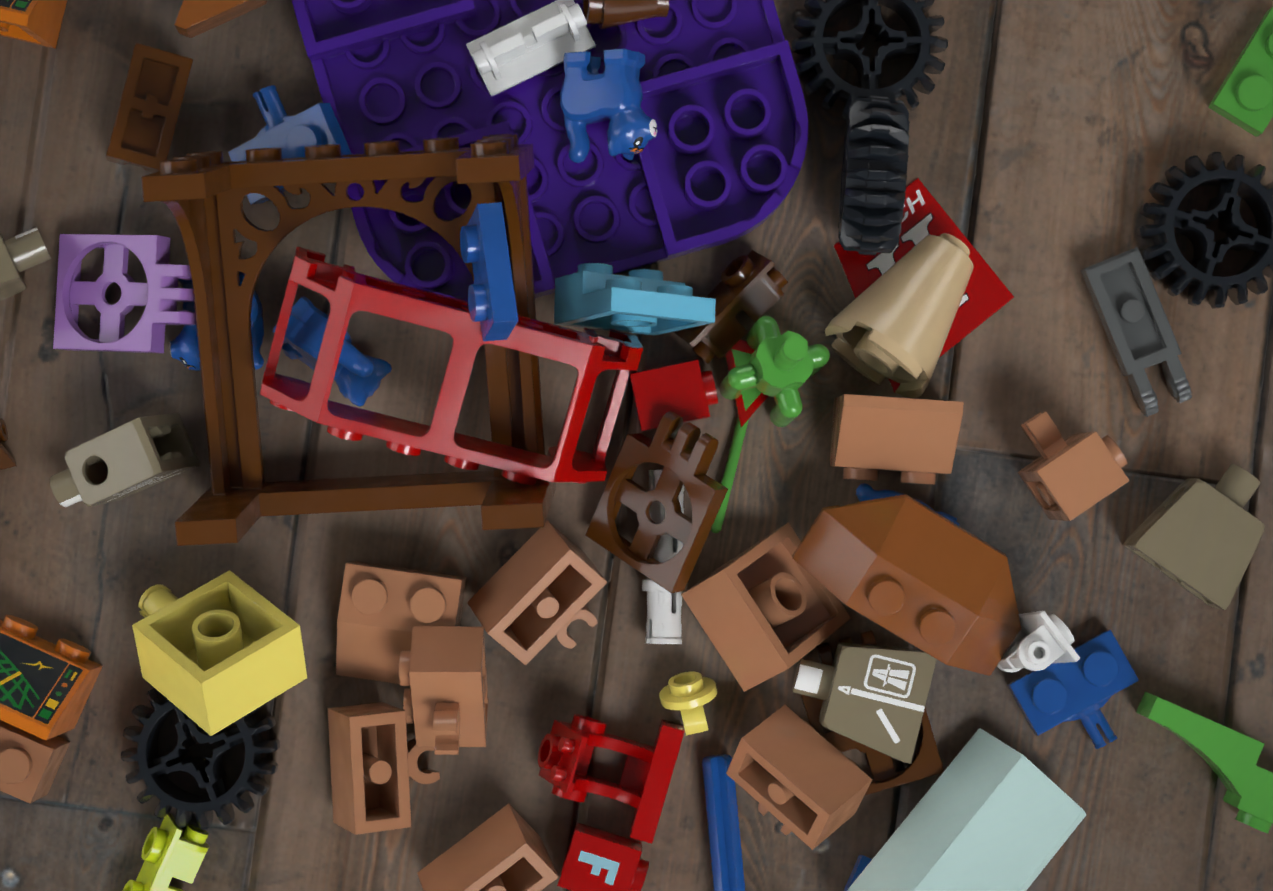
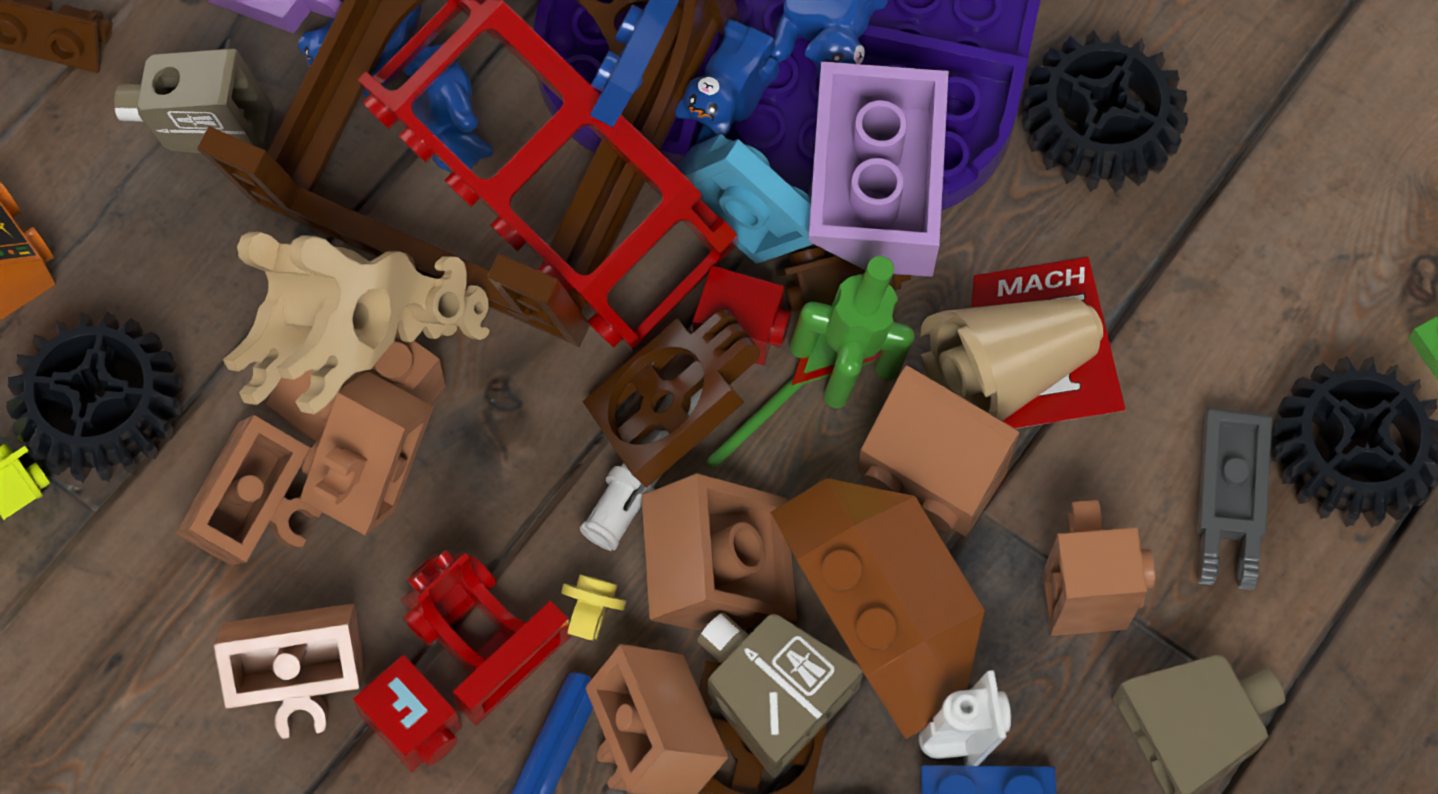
camera: 30 degrees right, 20 degrees down
(217, 650) = (171, 297): light yellow brick -> none
(376, 600) = (342, 313): none -> tan animal
(538, 594) = (505, 422): nougat brick -> none
(559, 216) = (730, 82): none -> blue animal
(728, 226) = (879, 165): none -> lavender slope
(873, 175) = (1044, 207): black gear -> none

